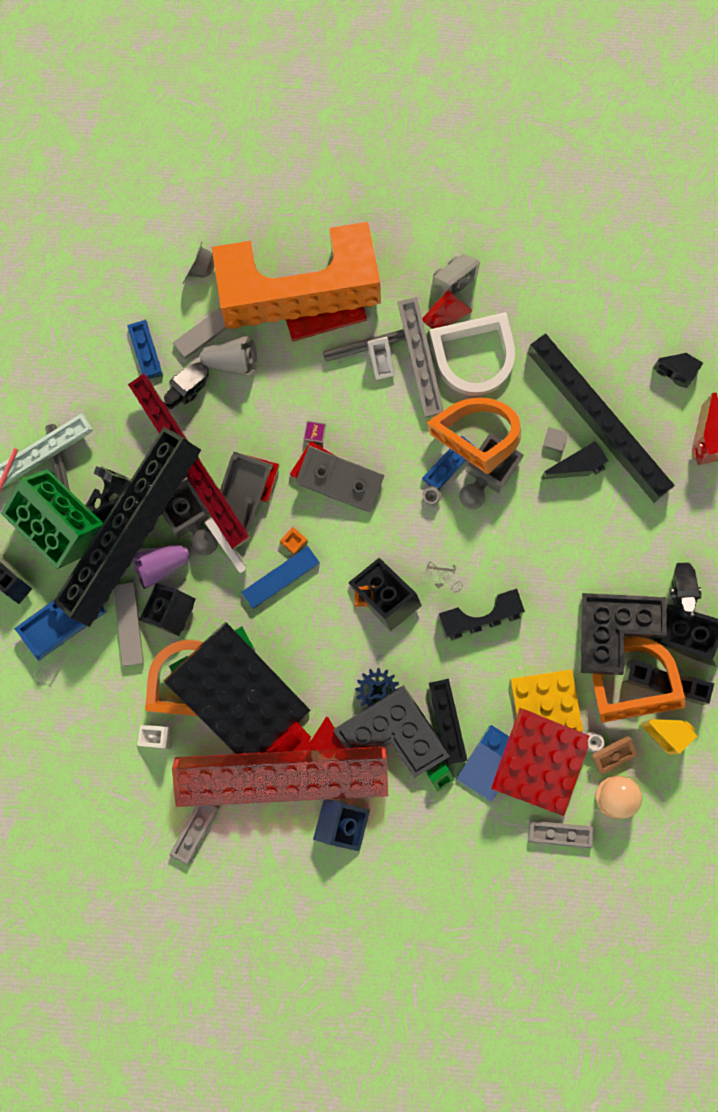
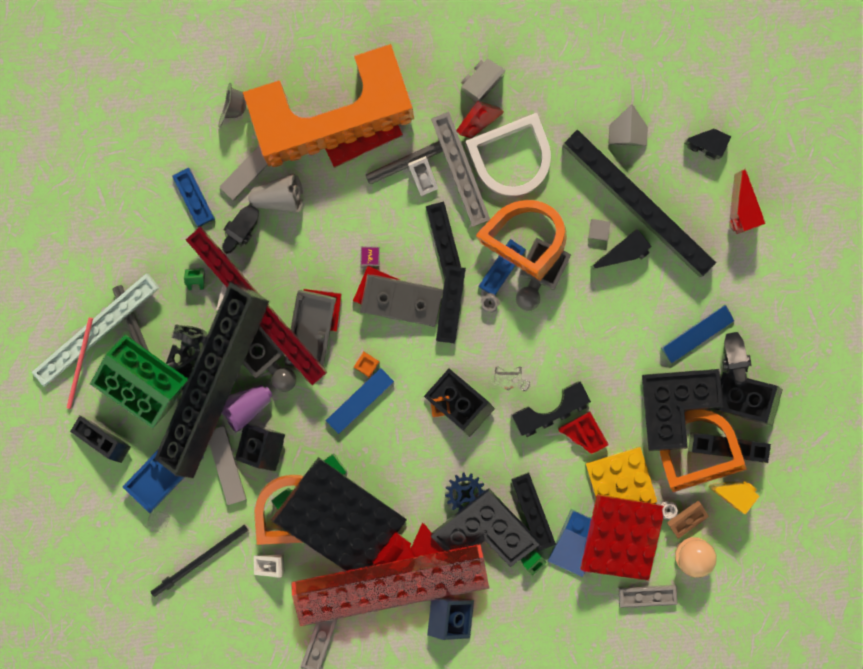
camera: 15 degrees left, 10 degrees up
(45, 739) = (168, 582): none -> black bar
(131, 425) = (194, 276): none -> green tile
(232, 553) = (315, 390): white tile -> none
(390, 490) = (450, 304): none -> black plate
(393, 428) = (443, 235): none -> black tile
(514, 645) = (585, 433): none -> red wing
(597, 344) = (628, 129): none -> light grey slope
(646, 560) = (697, 334): none -> blue slope

